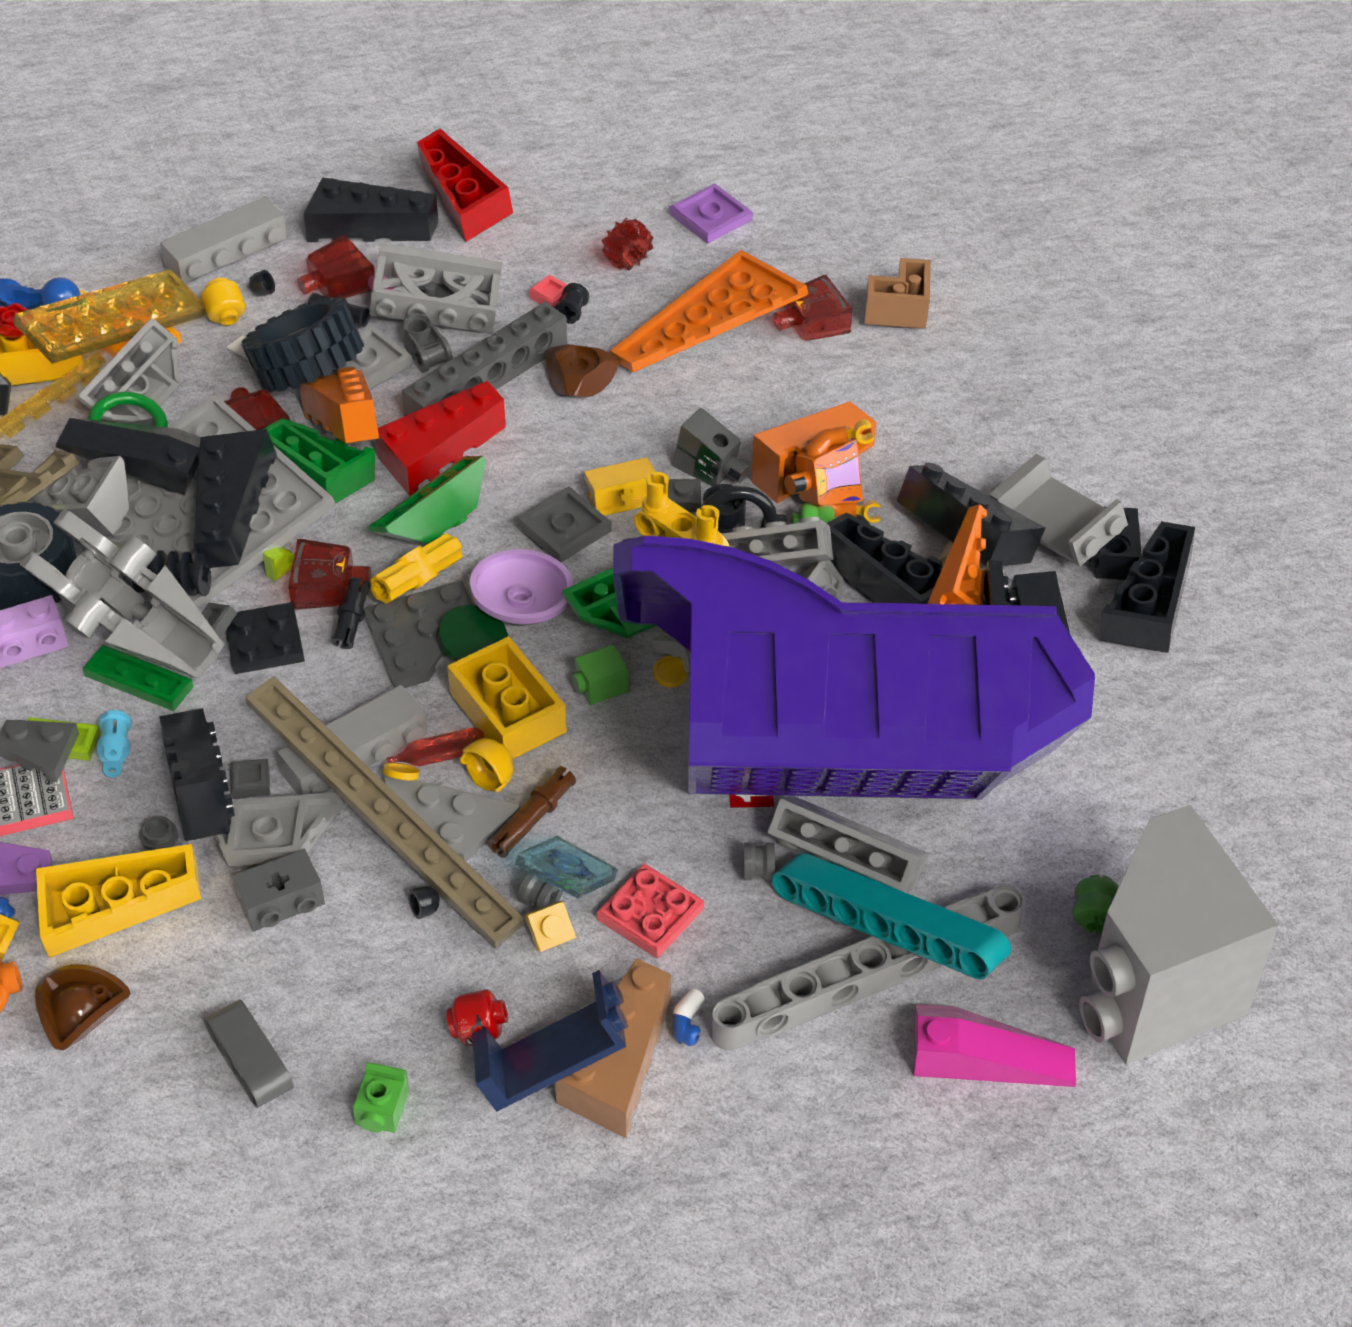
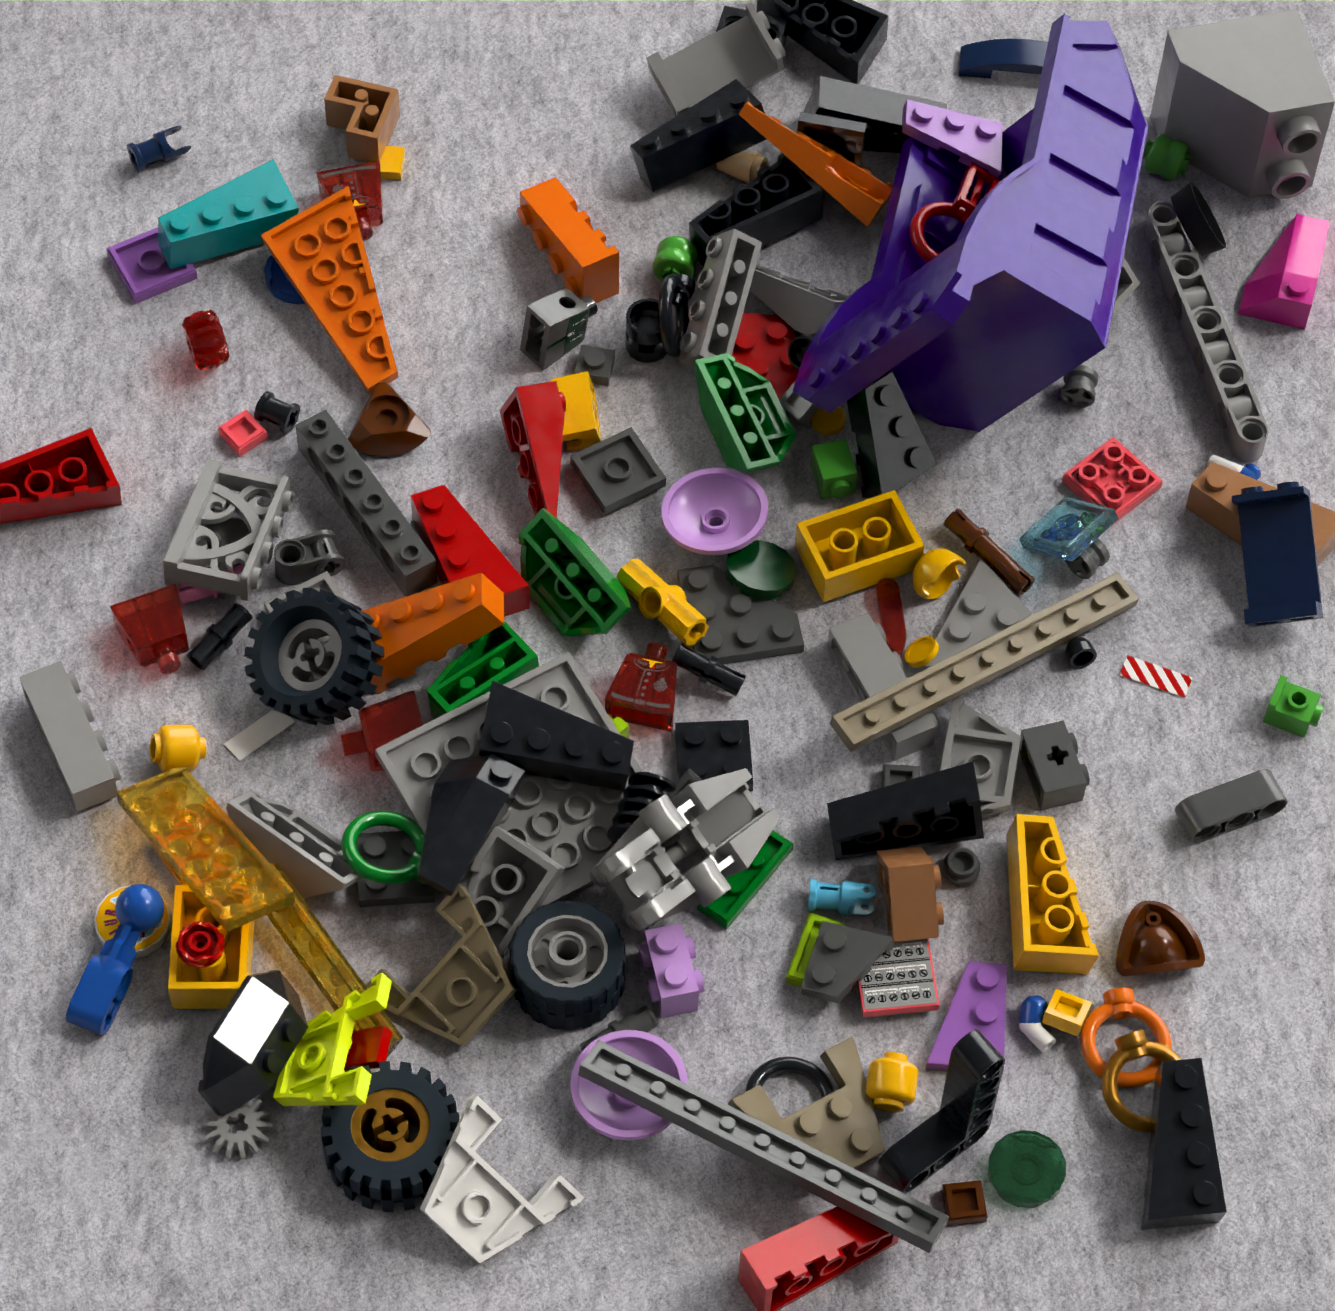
camera: 80 degrees left, 10 degrees up
(109, 776) = (909, 888): none -> medium nougat brick
(261, 283) = (148, 708): black hinge -> none
(369, 212) = (58, 587): black wedge -> none
(412, 979) = (1156, 676): none -> sticker
(474, 1012) = (1219, 623): red head -> none
(550, 926) = (1126, 555): yellow plate -> none
(571, 451) = (535, 429): none -> red wedge
(631, 690) = (887, 438): none -> black wedge
(667, 519) = (712, 350): yellow piece -> none
(762, 232) = (226, 217): none -> teal wedge
(827, 190) = (154, 149): none -> dark blue piece
(831, 471) = (624, 223): orange torso -> none
(869, 331) = (392, 162): none -> yellow tile
(892, 915) = (1181, 289): teal beam -> none
(1035, 940) = (1198, 220): none -> black tyre
(1189, 767) = (1002, 55): none -> dark blue slope

